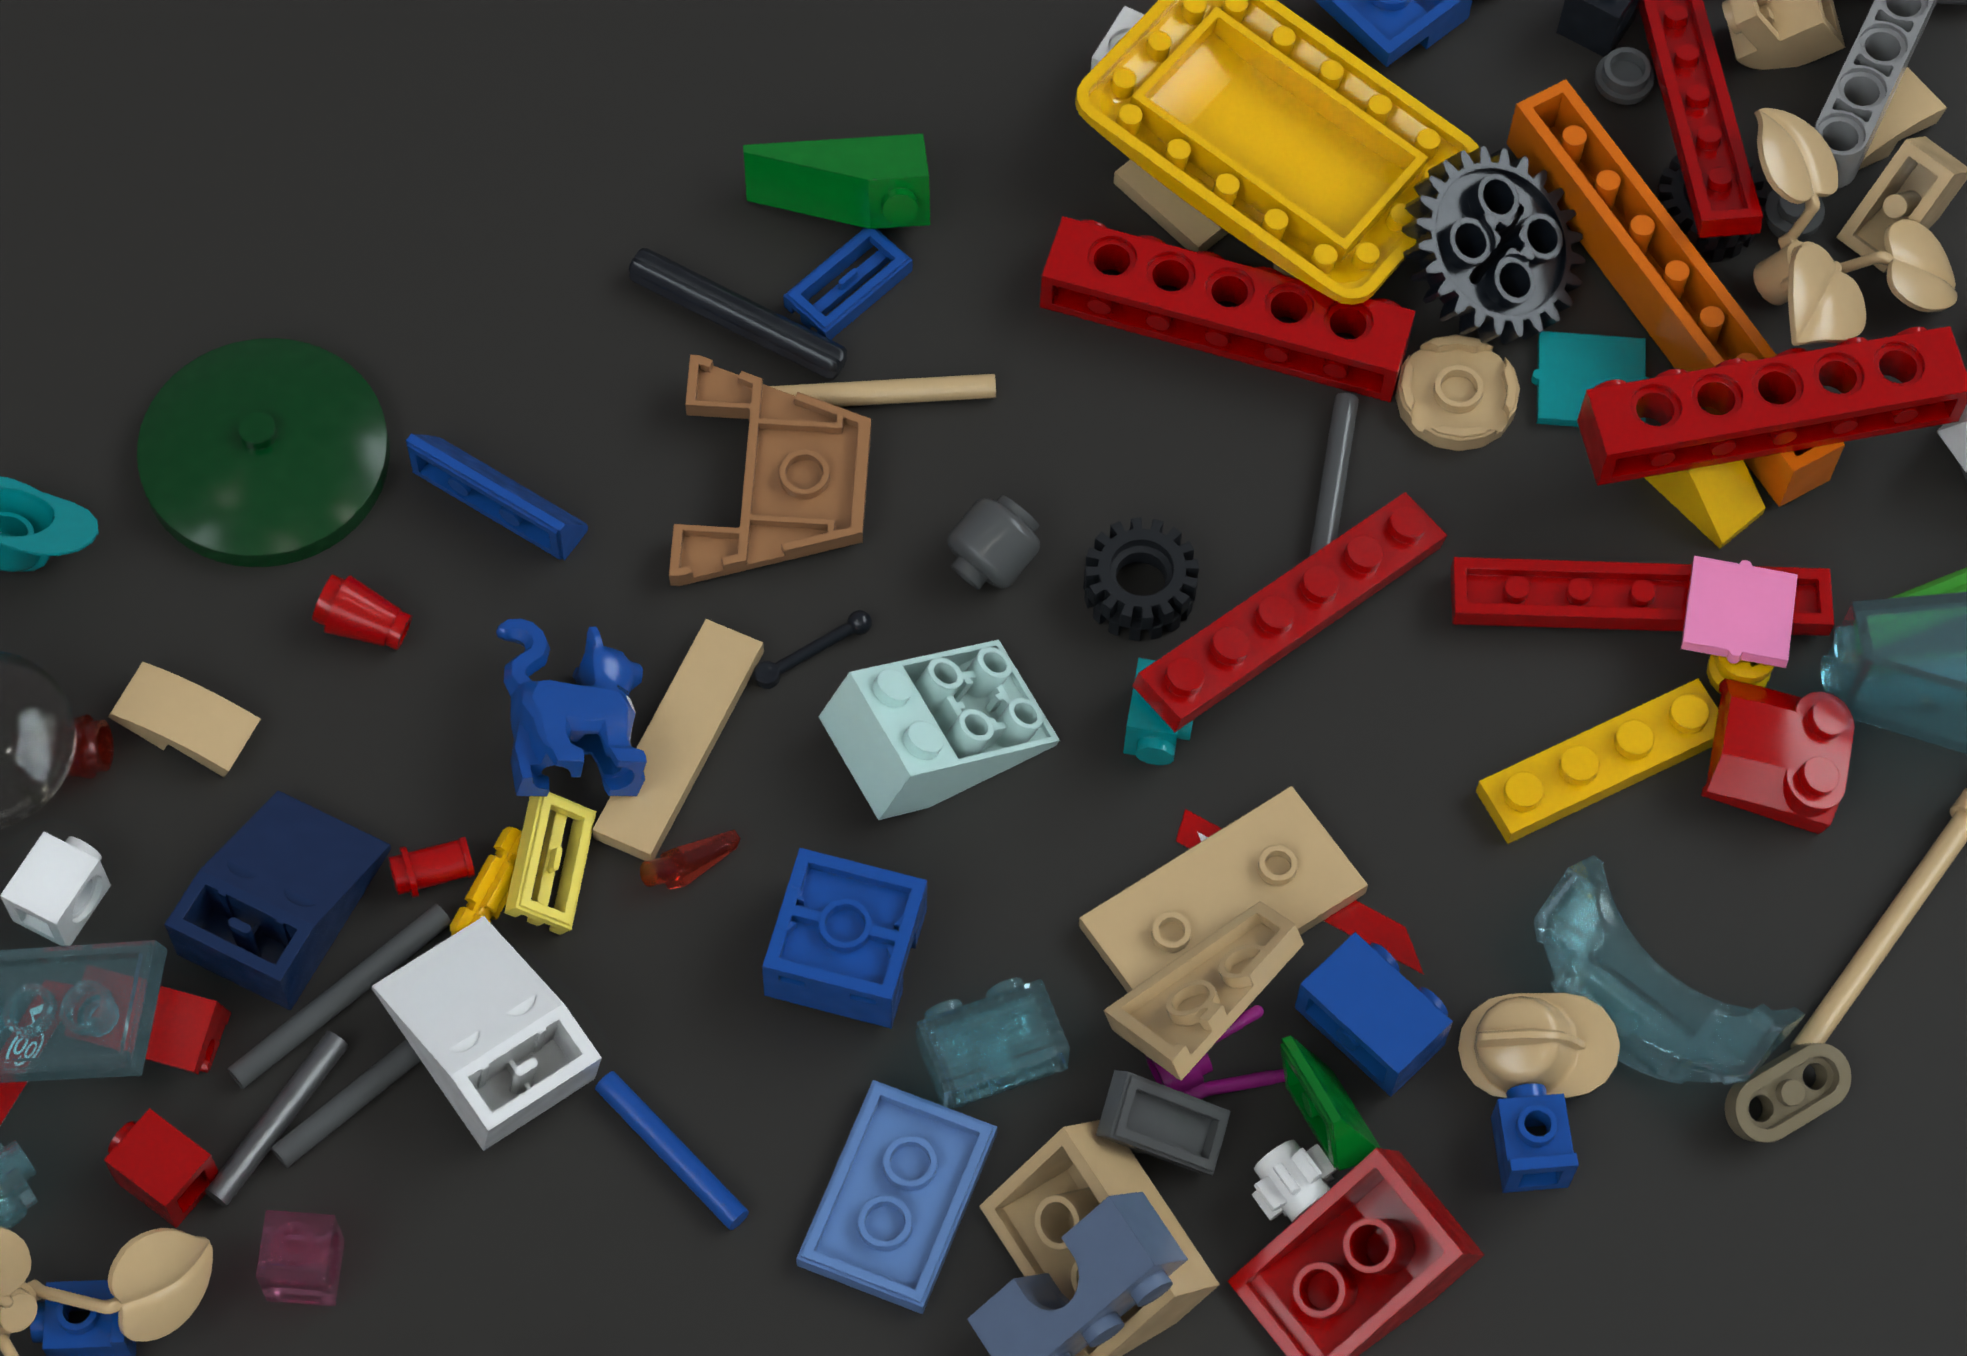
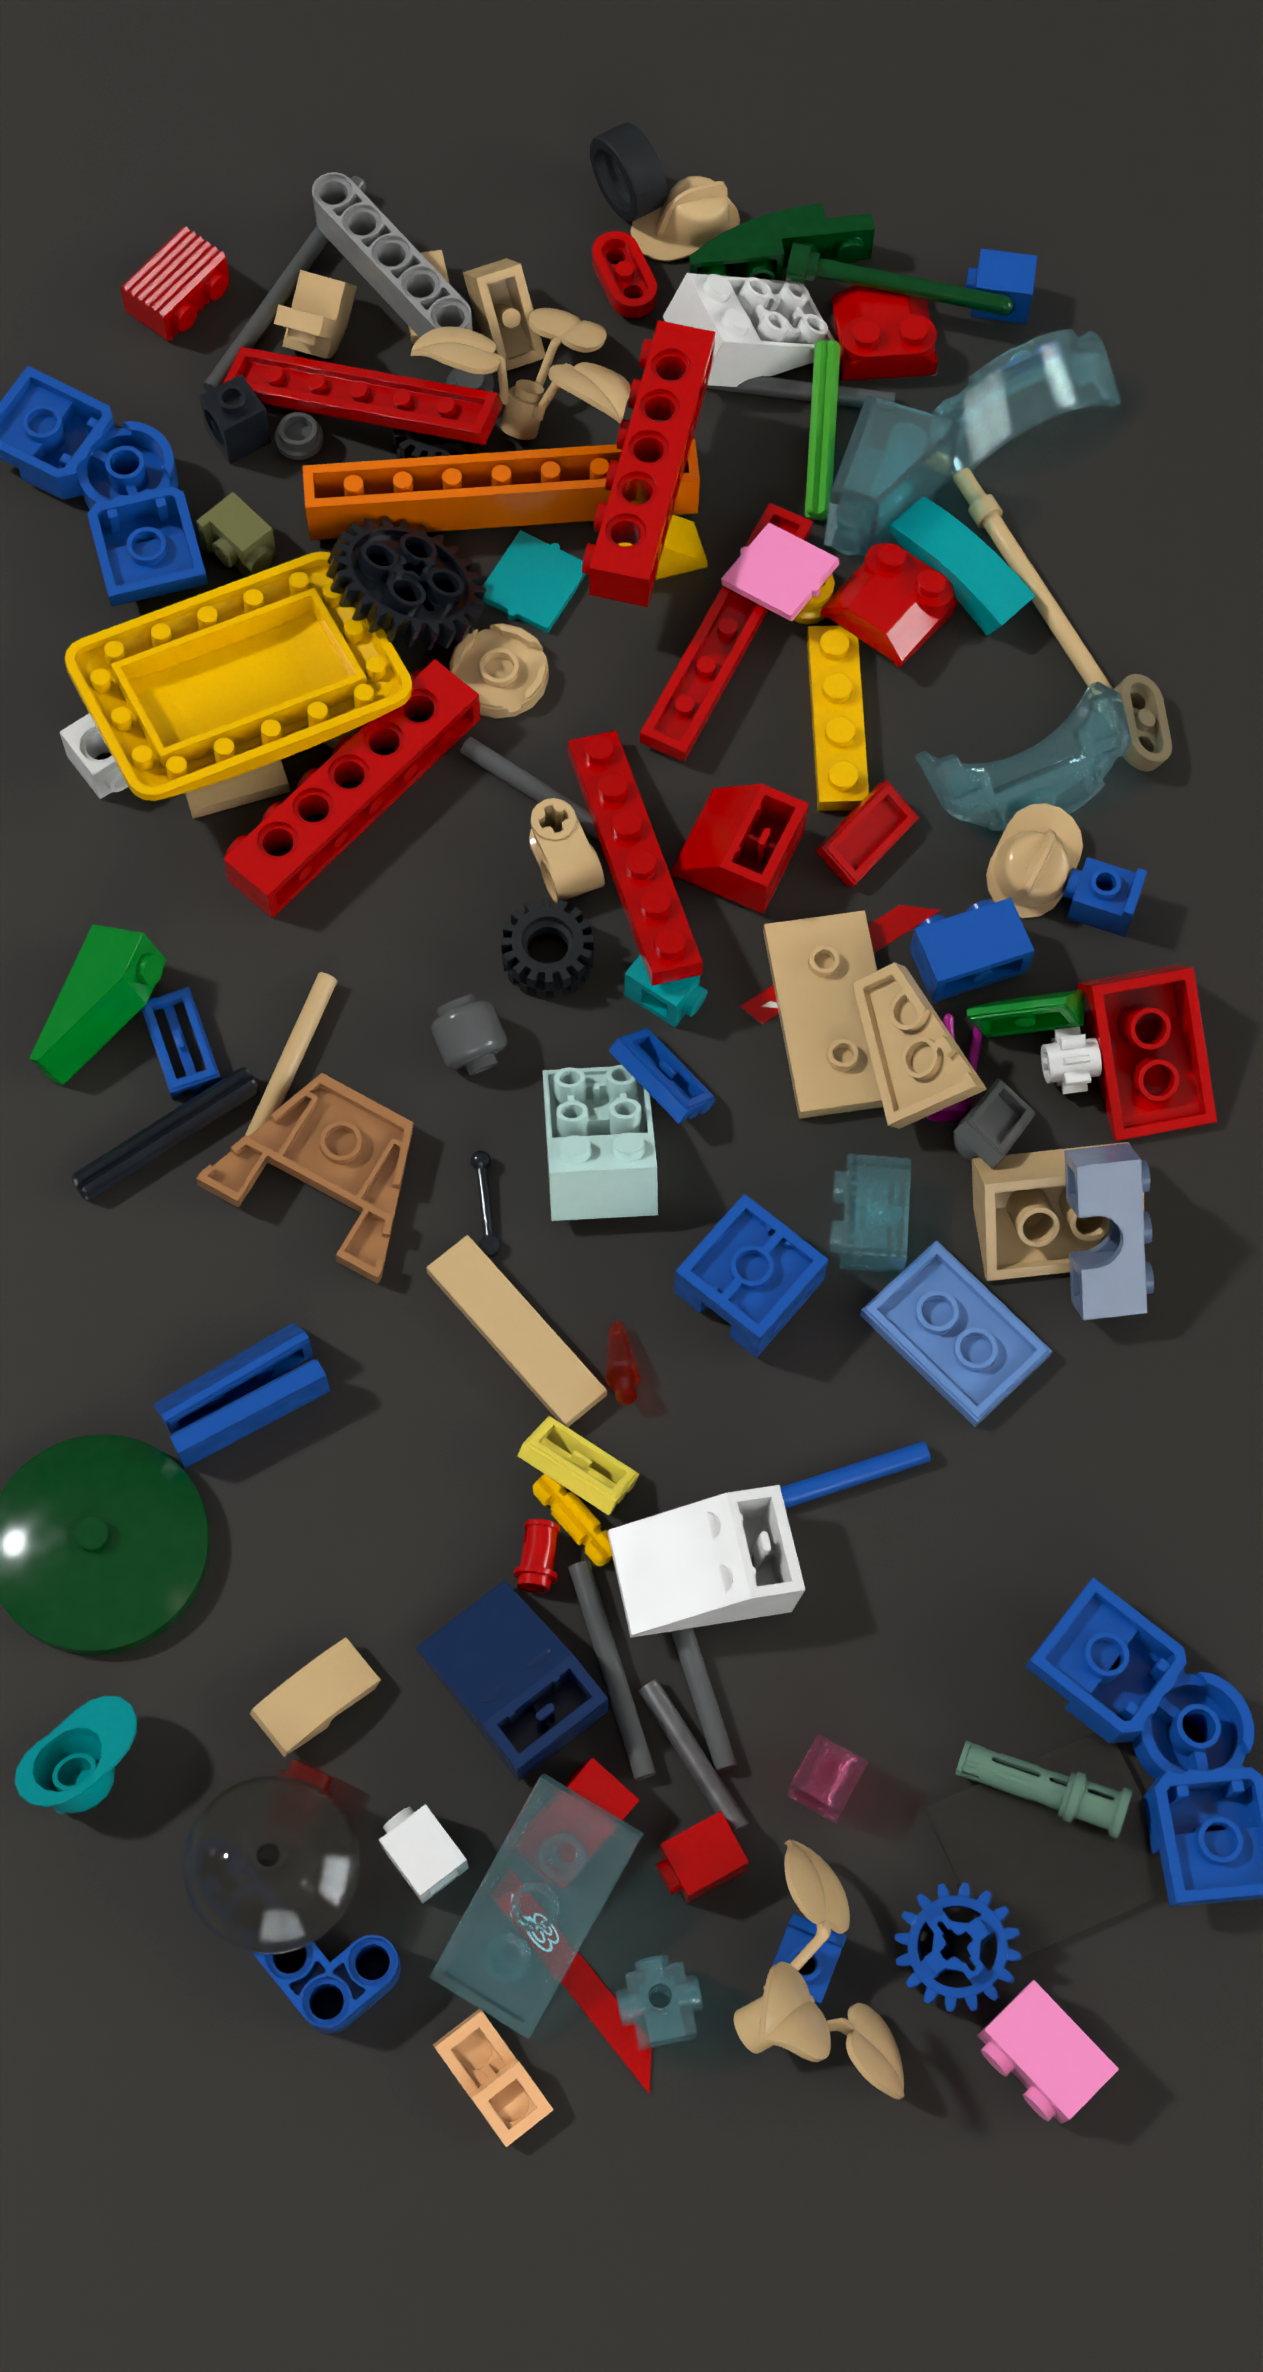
camera: 65 degrees left, 5 degrees up
(360, 613) = (288, 1525): red cone -> none
(461, 522) = (250, 1413): none -> blue tile
(565, 721) = (476, 1402): blue animal -> none
(1042, 748) = (662, 1075): none -> blue tile
(1263, 540) = (563, 851): none -> tan piece
(1374, 723) = (743, 843): none -> red slope
(1462, 69) = (237, 536): none -> olive brick
(1467, 848) = (867, 833): none -> red tile
(1875, 804) = (978, 575): none -> teal slope

